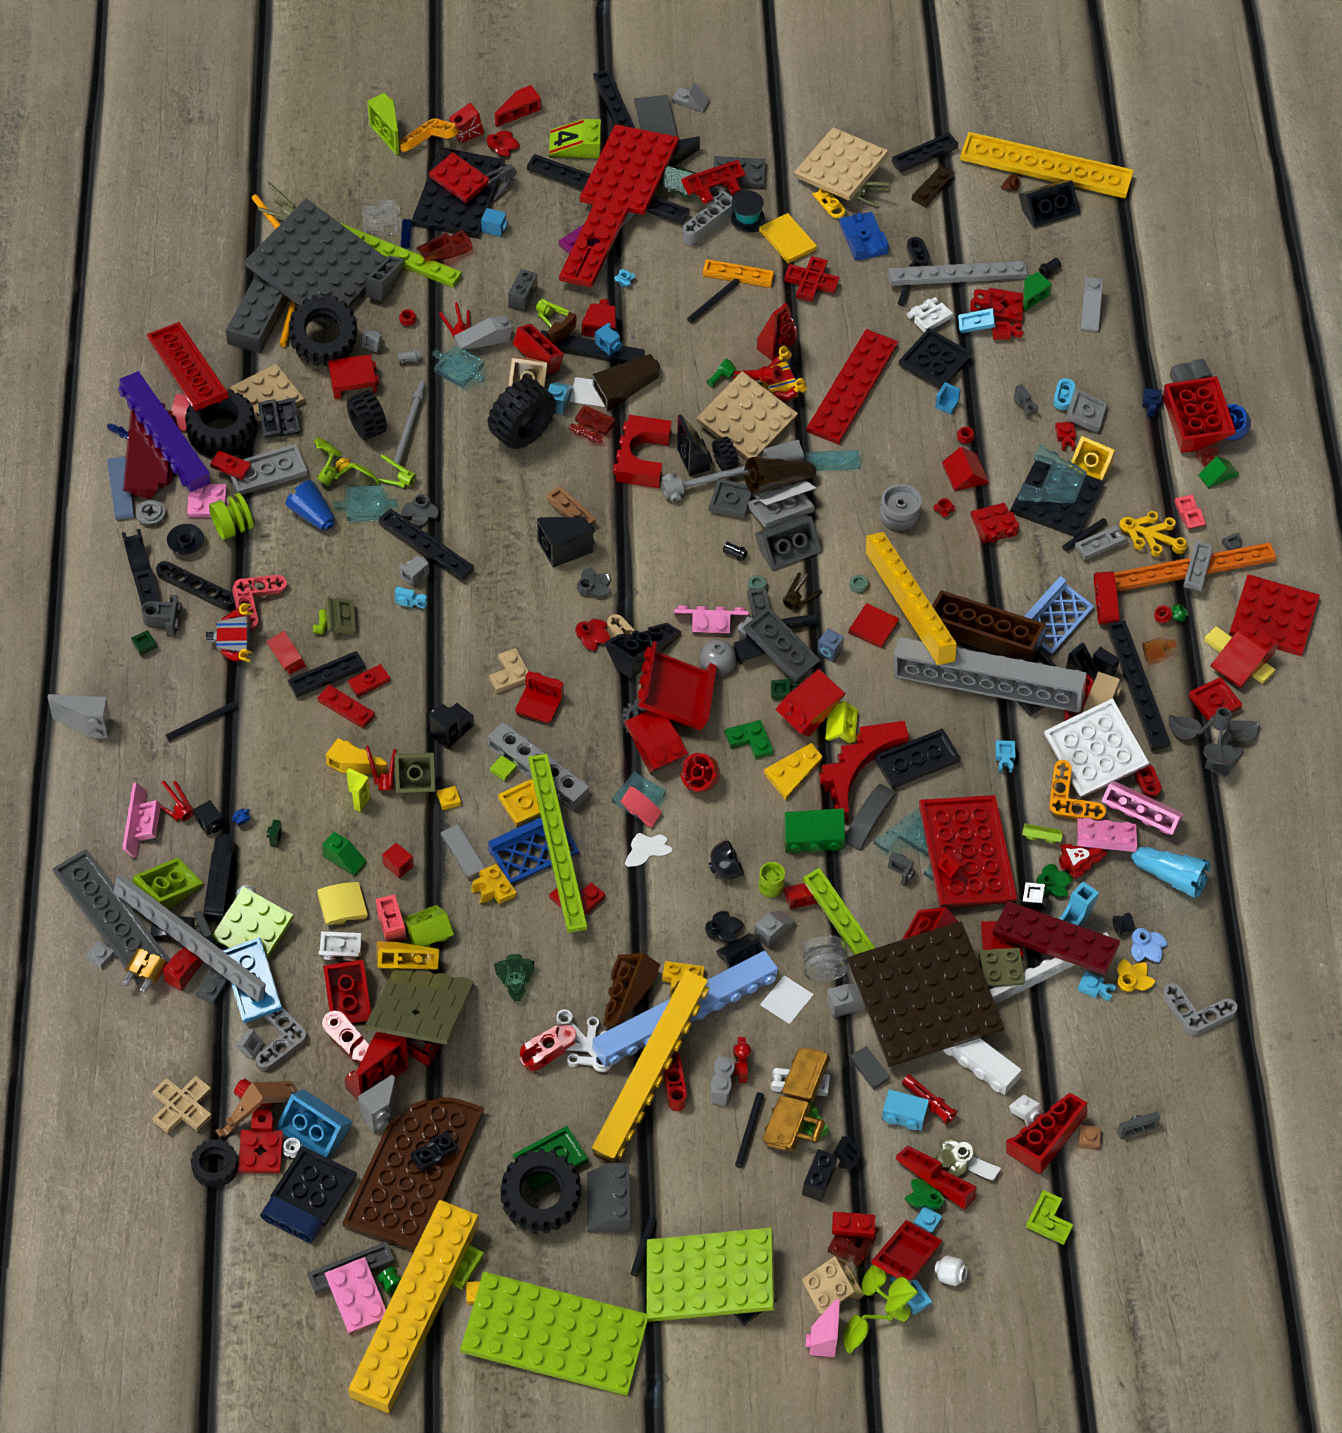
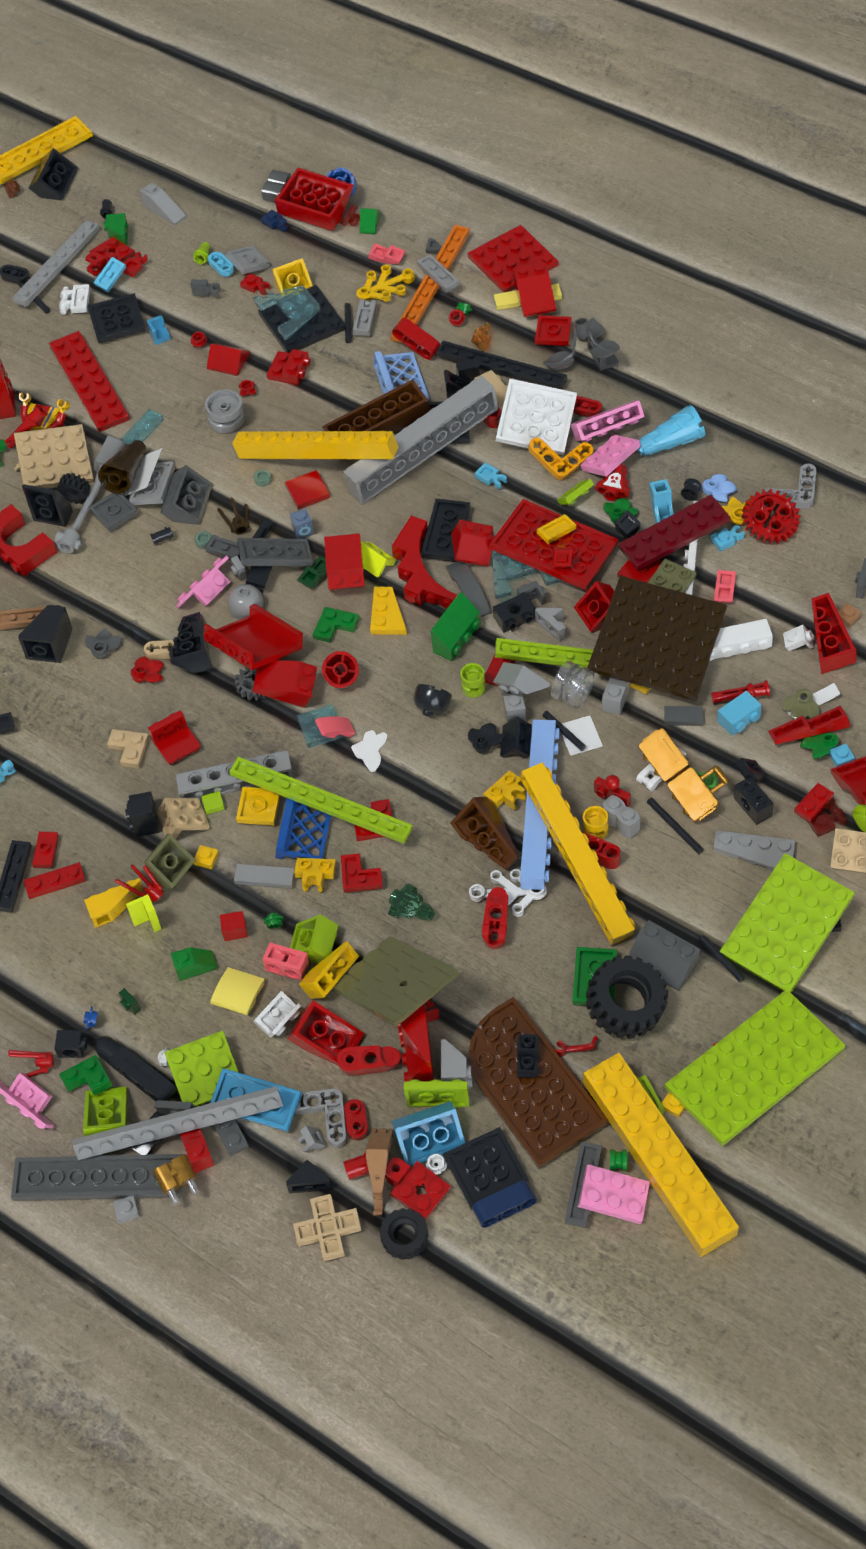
camera: 45 degrees left, 0 degrees up
(193, 847) = (89, 1072): none -> green plate
(212, 1062) = (308, 1179): none -> black slope
(292, 1064) = (356, 1118): none -> red plate
(349, 1105) = (436, 1093): none -> lime plate
(424, 885) = (273, 920): none -> green plate
(465, 1178) = (575, 1048): none -> red piece
(472, 755) = (181, 814): none -> tan bracket
(510, 919) = (355, 878): none -> red plate
(698, 1065) = (595, 821): none -> yellow wheel
(775, 1209) = (753, 848): none -> light grey wing
(779, 983) = (563, 730): none -> black bar
(793, 914) = (518, 679): none -> light grey slope
(863, 859) = (514, 612): none -> black brick
(886, 900) = (551, 620): none -> light grey slope
(914, 785) = (472, 542): none -> red slope
(982, 842) = (556, 529): none -> yellow tile
(1037, 1018) = (725, 586): none -> coral slope
(1063, 371) = (201, 254): none -> lime cone
(1148, 1024) = (785, 525): none -> red gear

